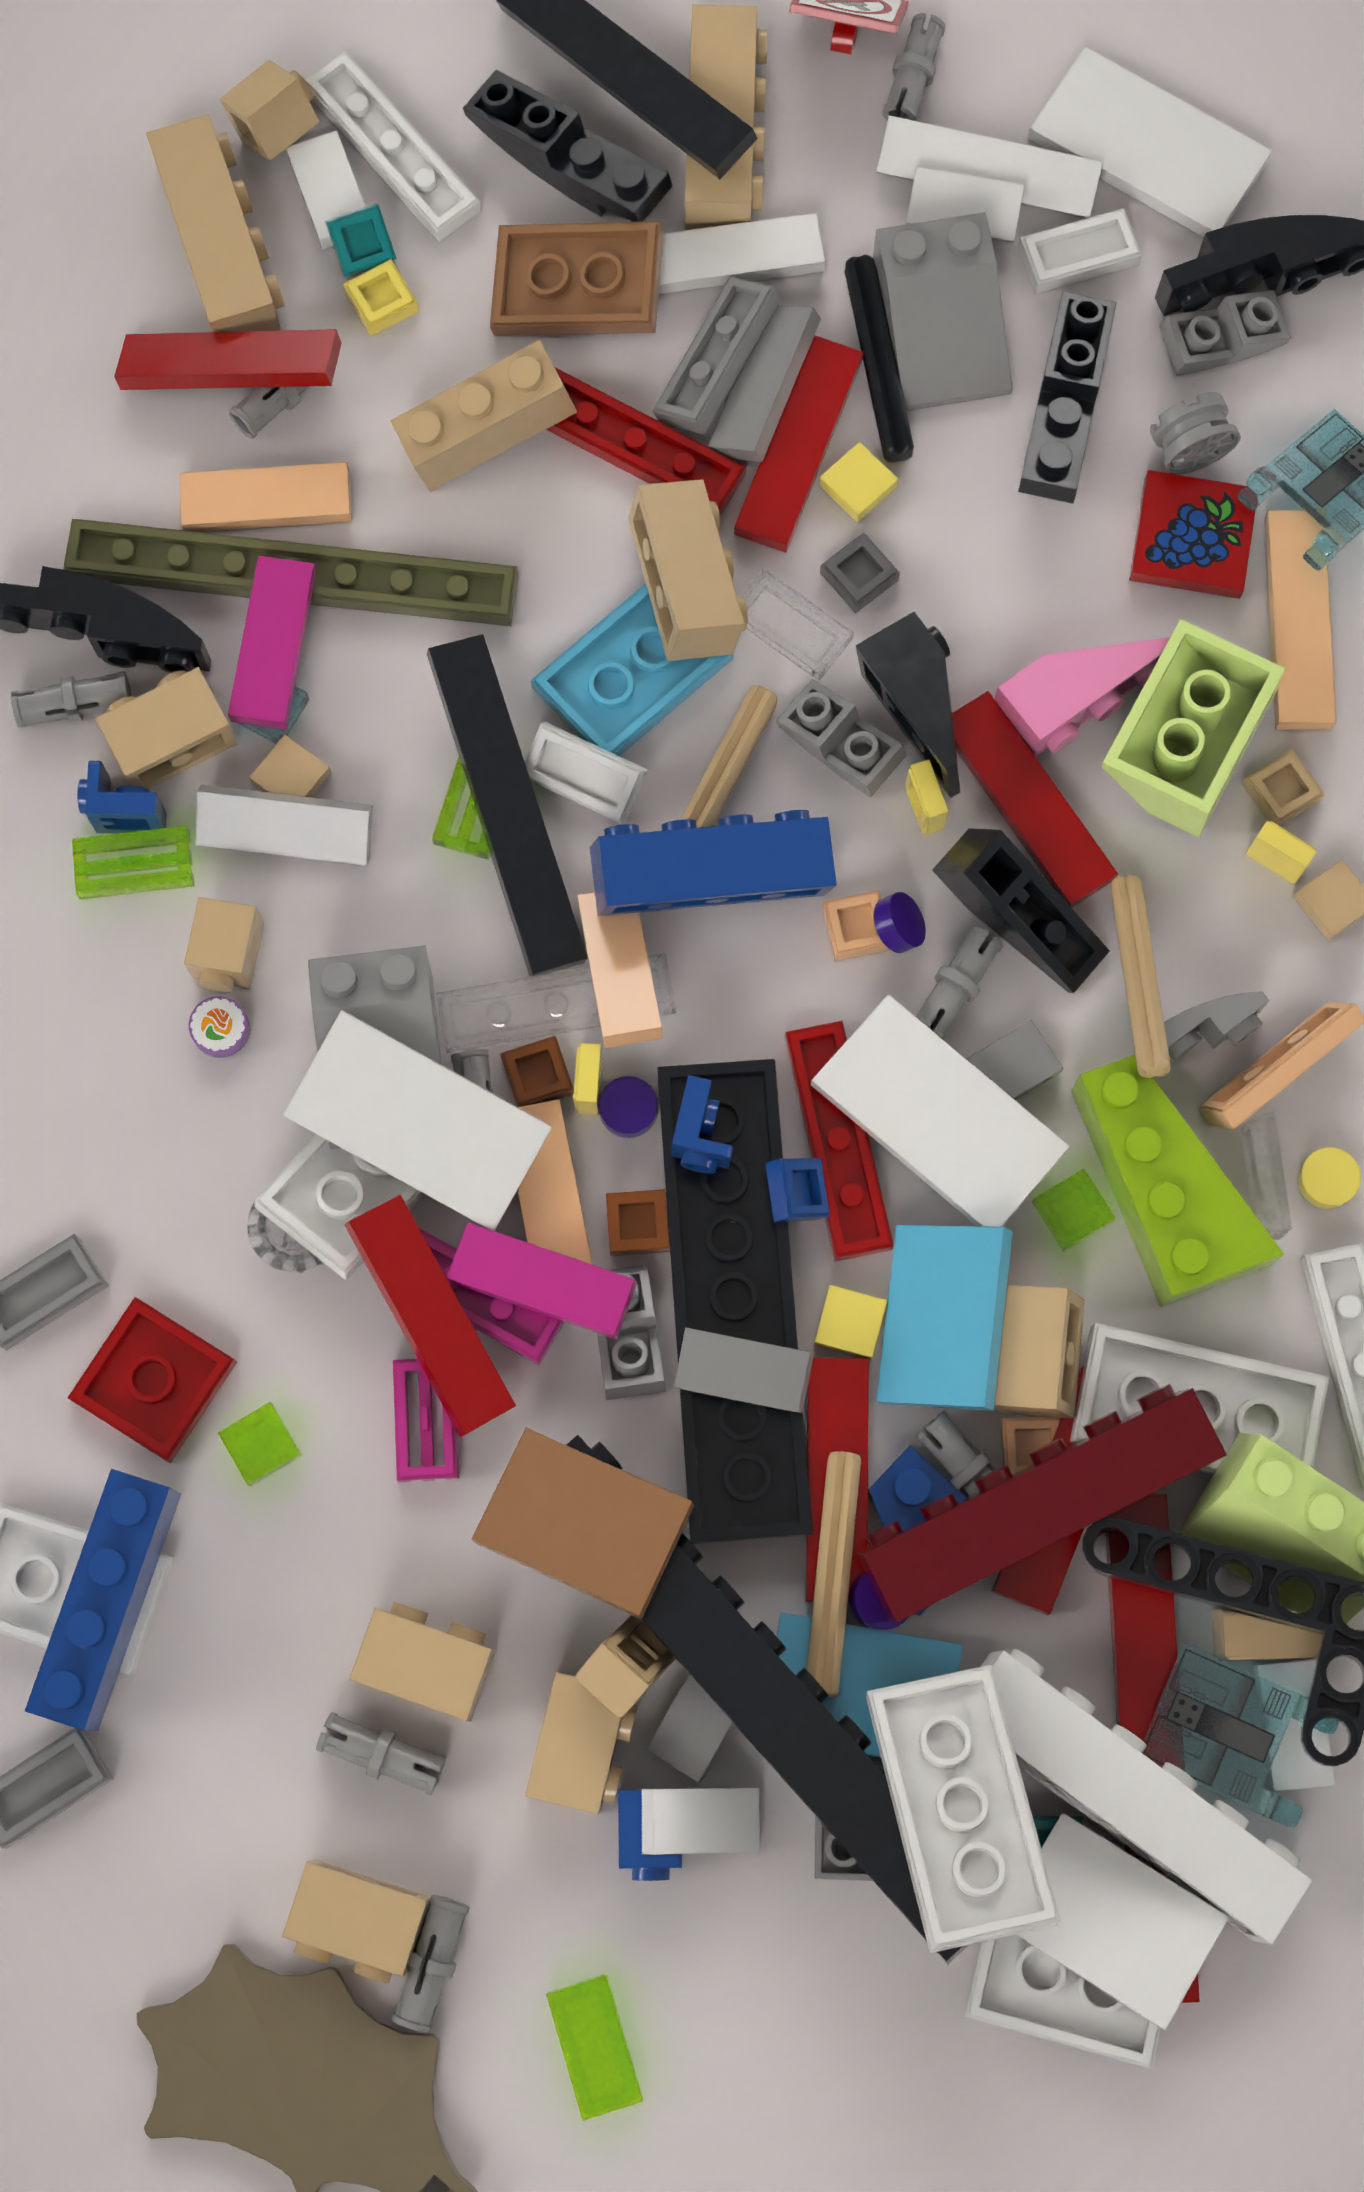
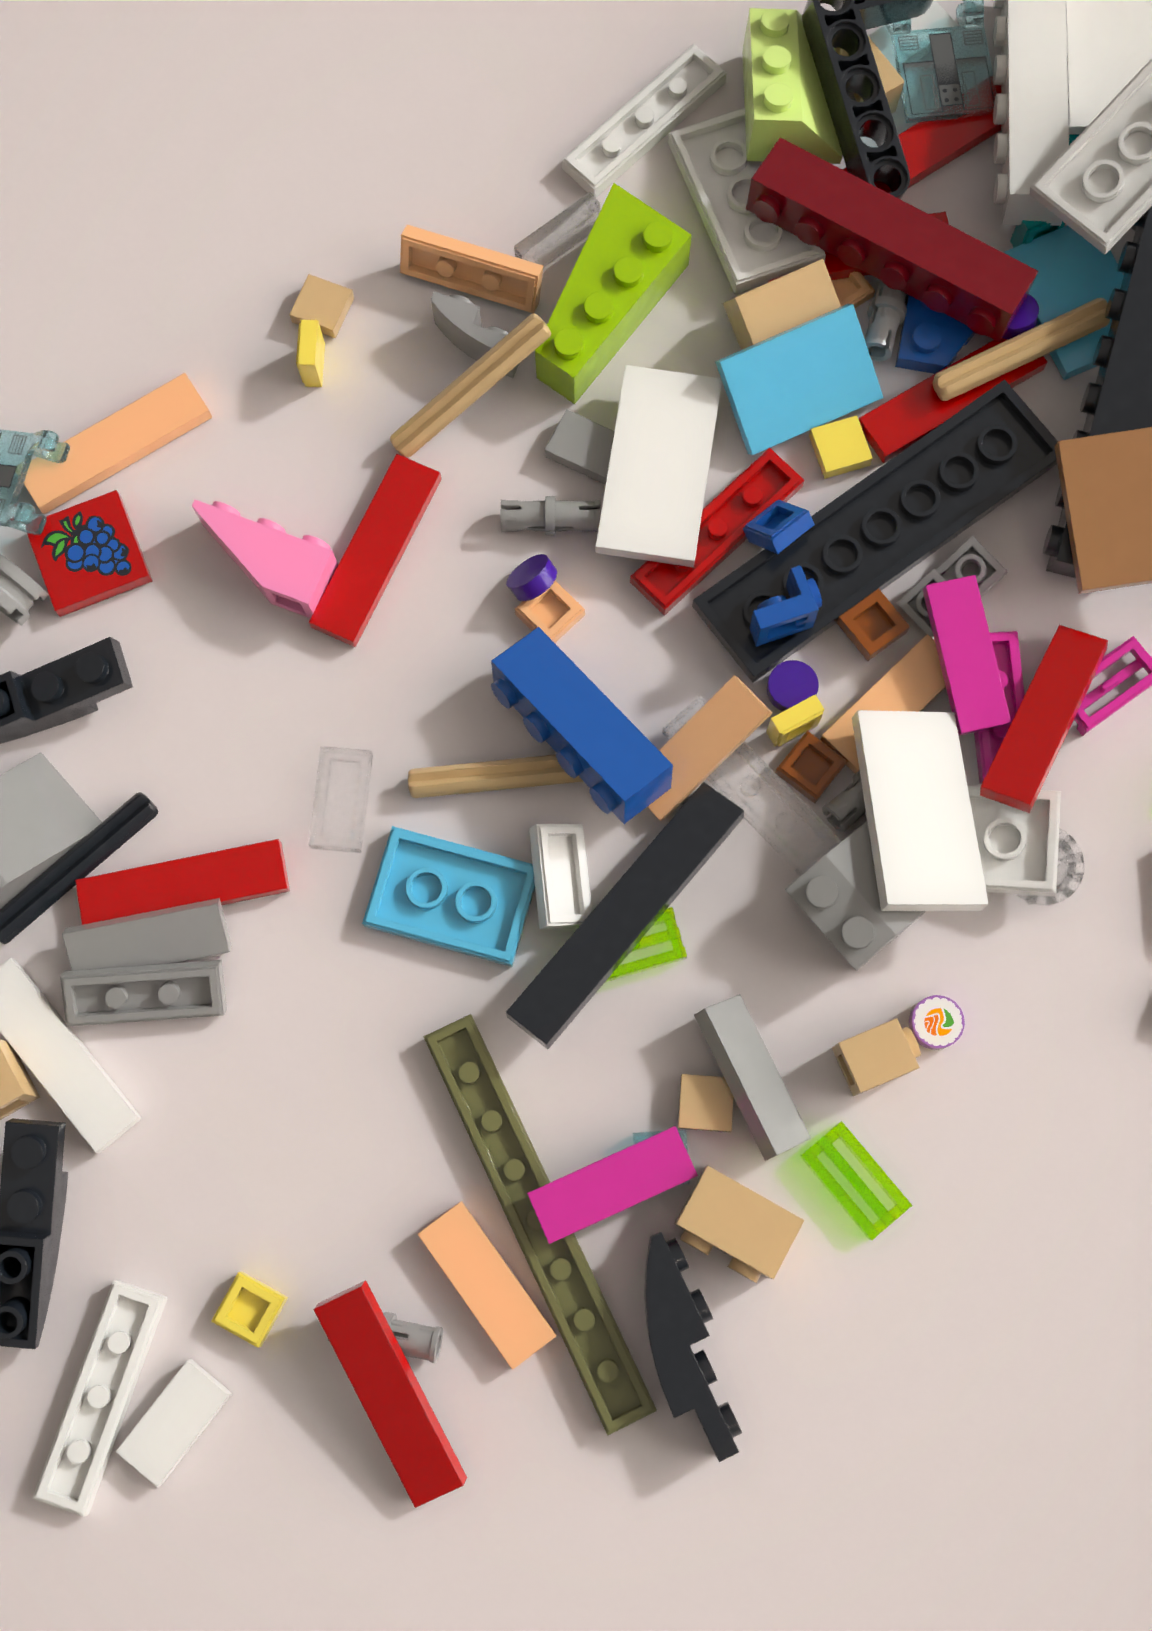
camera: 120 degrees left, 0 degrees up
(68, 699) = (760, 1324): light grey pin -> none
(122, 811) = (822, 1209): blue bracket -> none
(213, 226) = (272, 1497): tan brick -> none
(270, 109) = (130, 1521): tan brick -> none
(360, 239) = (208, 1358): teal tile -> none
(483, 416) = (315, 1138): tan brick -> none
(577, 278) = (141, 1149): medium nougat tile -> none
(643, 443) = (257, 1015): red tile -> none
(687, 570) = (350, 893): tan brick -> none
(744, 1370) = (938, 476): light grey slope -> none
(840, 738) = (410, 708): light grey slope -> none
(858, 482) = (190, 820): light yellow tile -> none
(859, 572) = (266, 775): flat silver tile -> none
(911, 681) = (342, 665): black slope -> none
(926, 797) = (423, 614): light yellow tile -> none
(1020, 906) = (465, 505): black slope -> none
(1073, 1210) = (661, 347): clear neon green tile -> none
(1191, 726) = (253, 449): yellowish green slope -> none
(1283, 788) = (257, 384): tan tile -> none
(1329, 1178) = (528, 205): light yellow tile -> none

